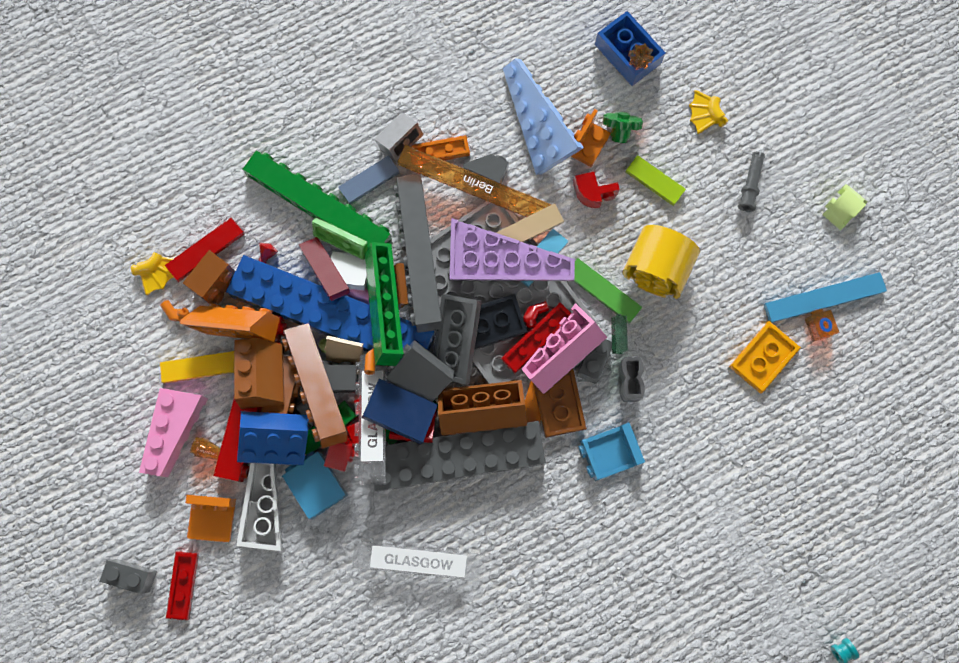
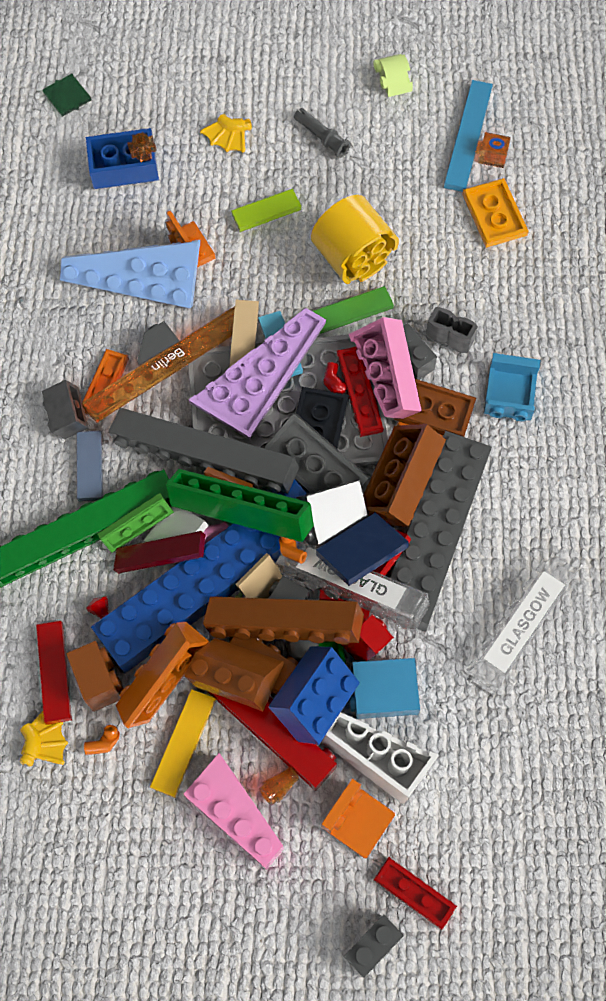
camera: 55 degrees left, 10 degrees down
(590, 193) = (238, 269): red brick -> none
(619, 334) = (400, 315): clear green piece -> none
(621, 125) = (194, 205): green plant -> none

